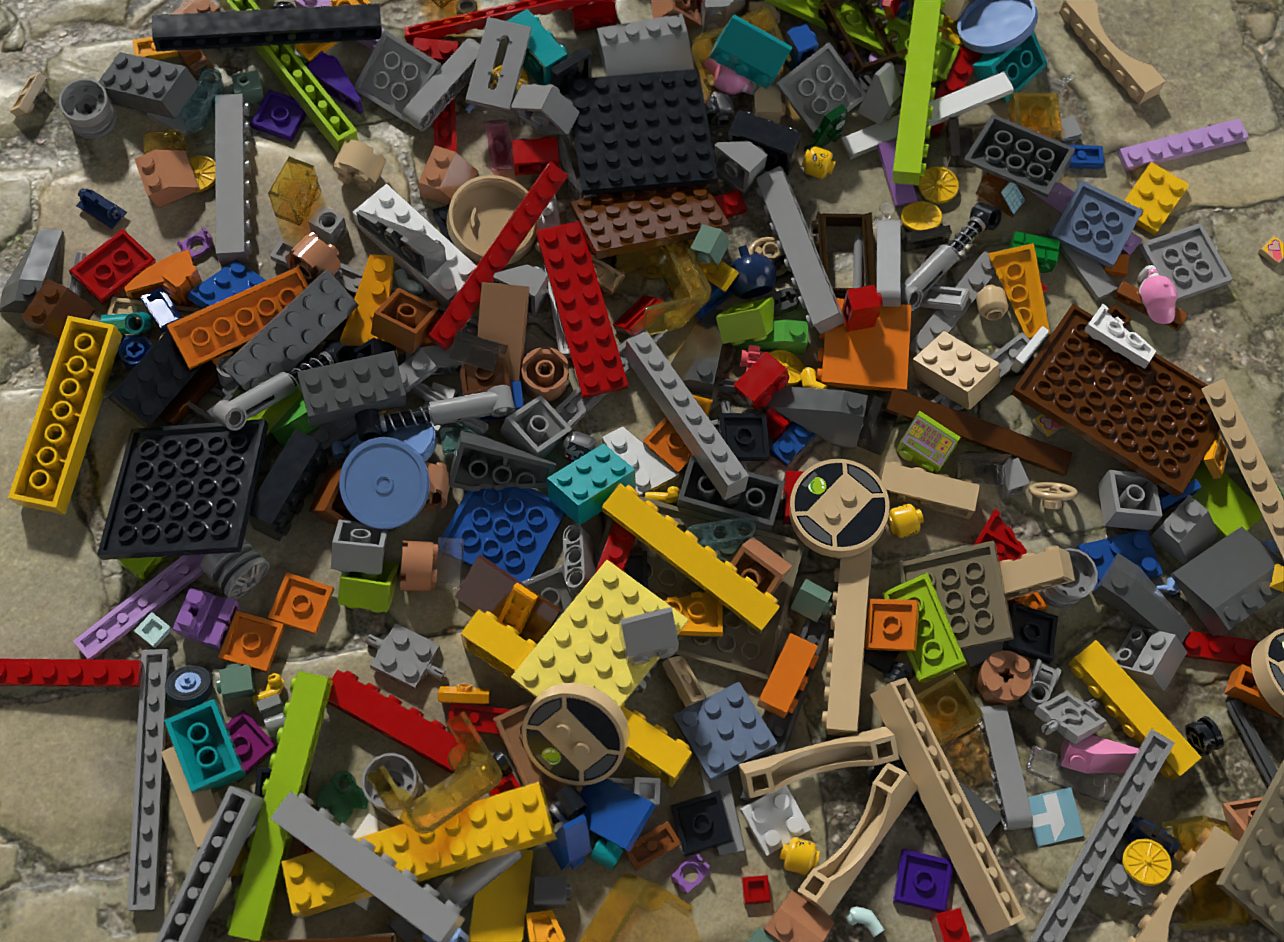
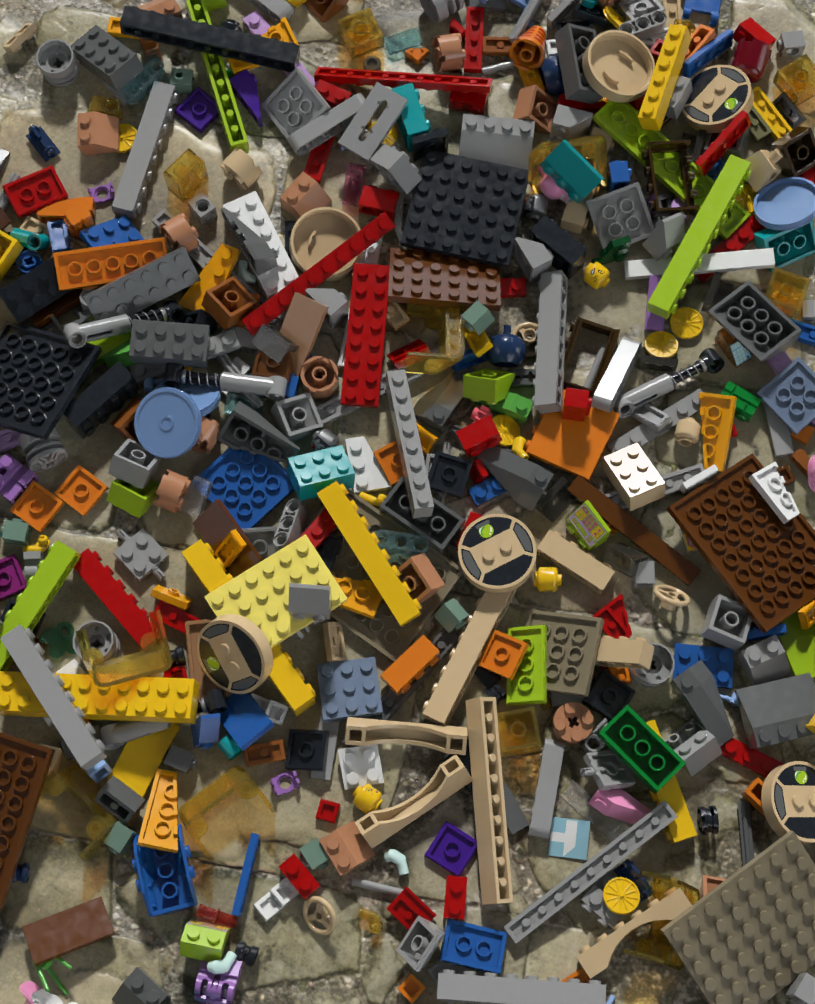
camera: 25 degrees right, 5 degrees up
(1101, 678) = (641, 749): none -> green brick

